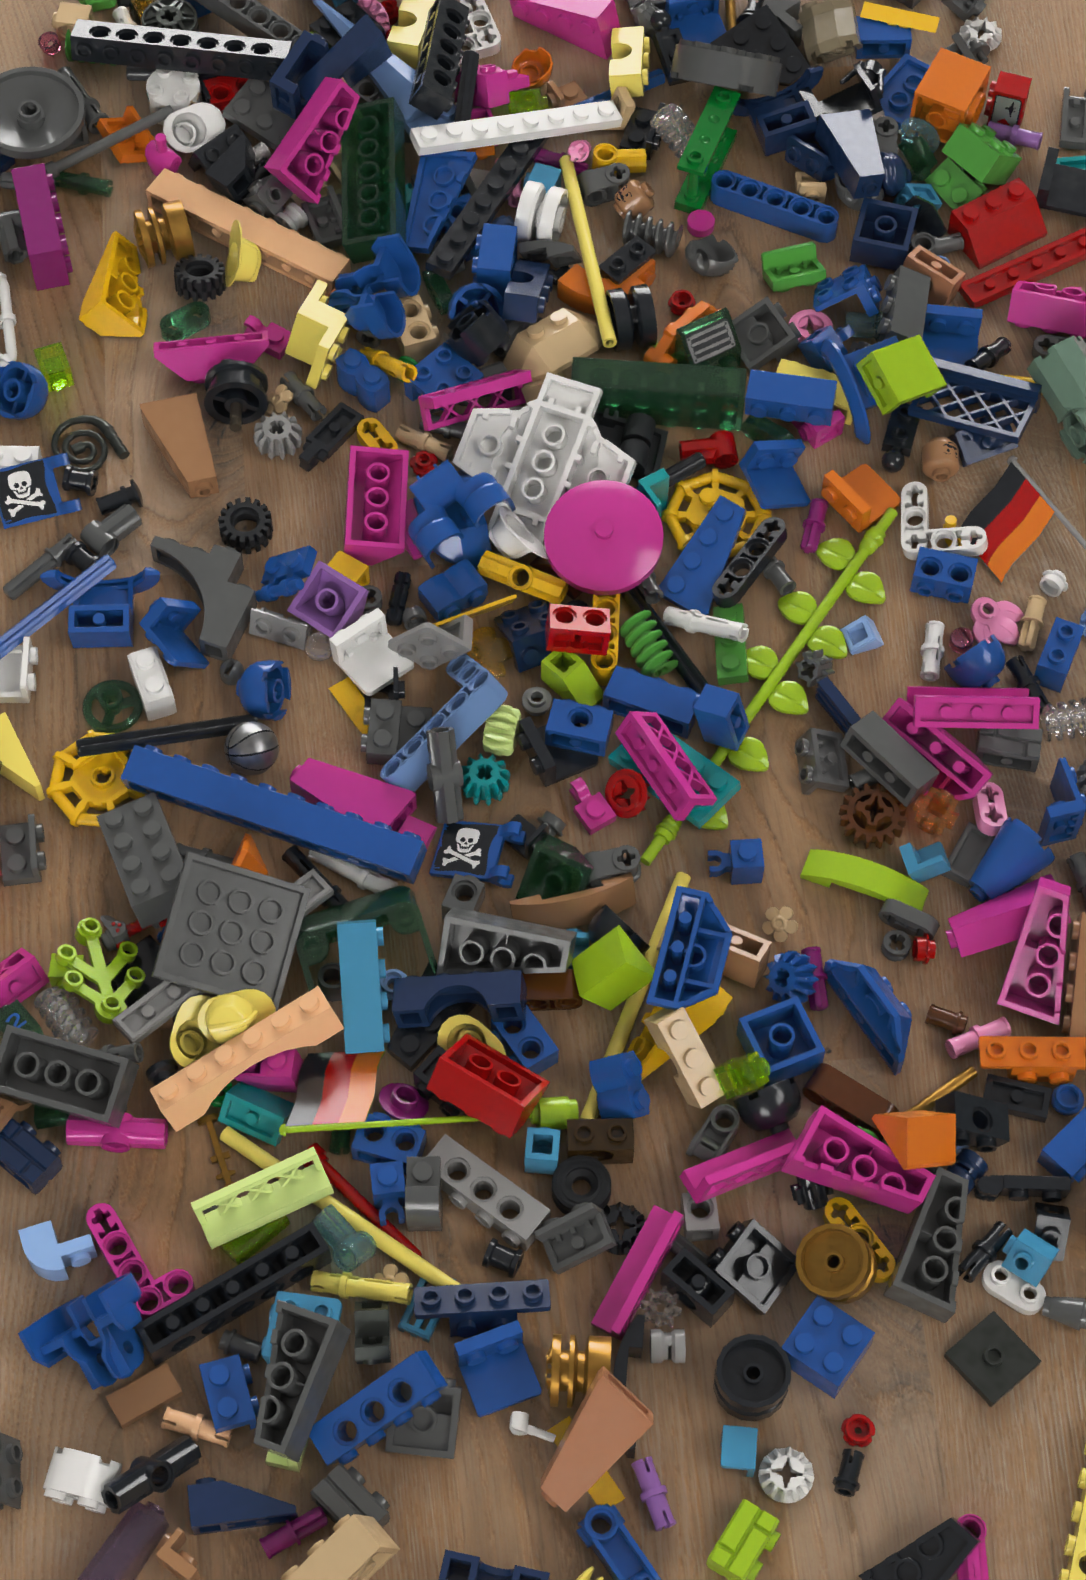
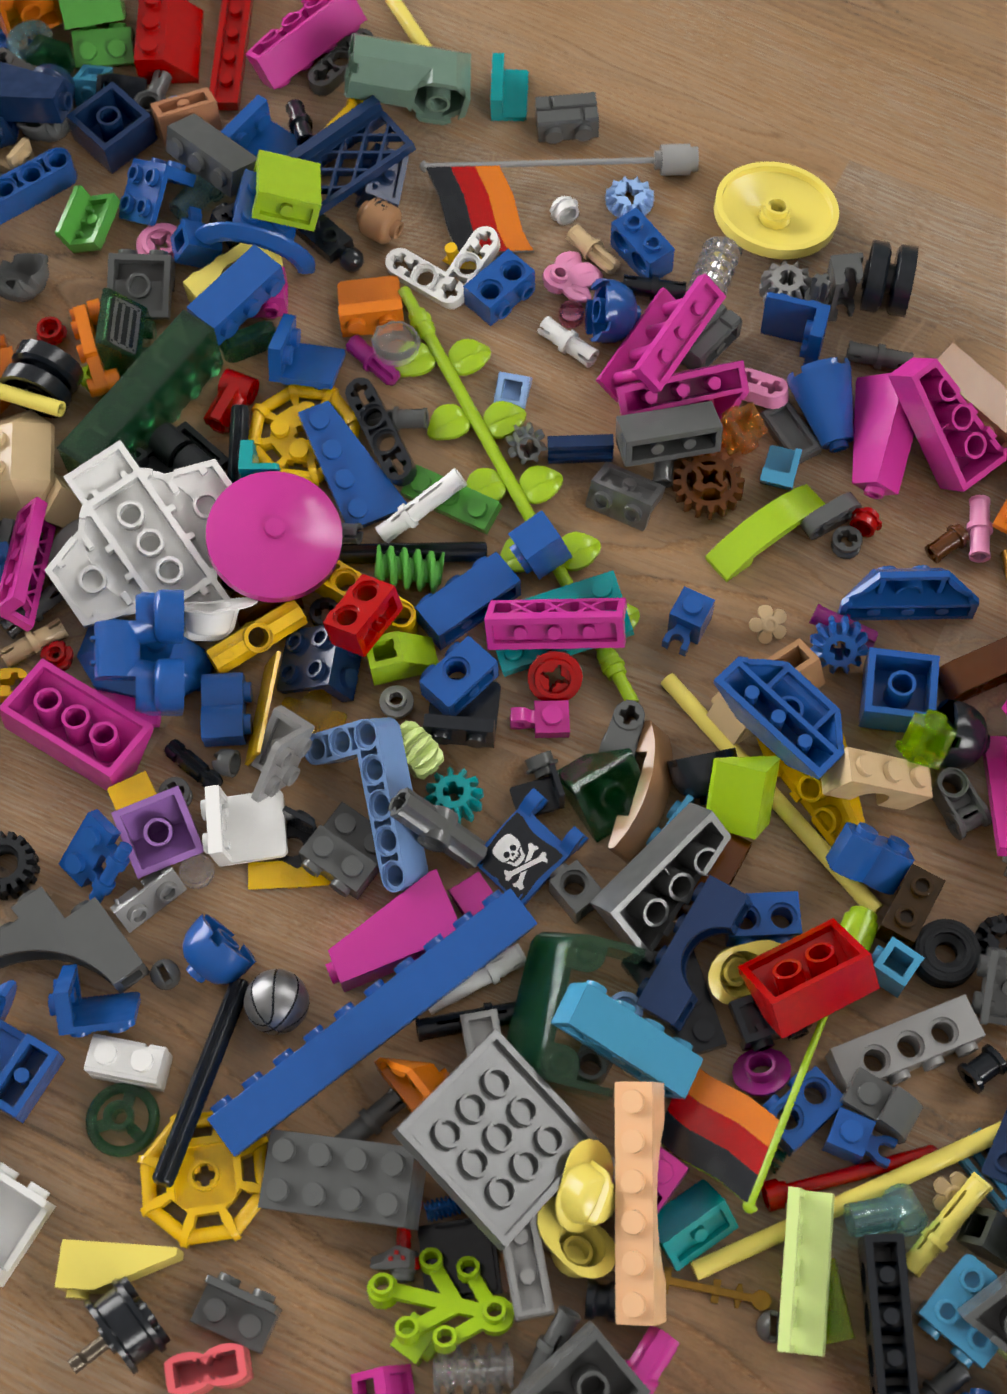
camera: 55 degrees left, 5 degrees up
(832, 528) = (396, 343): none -> clear hair

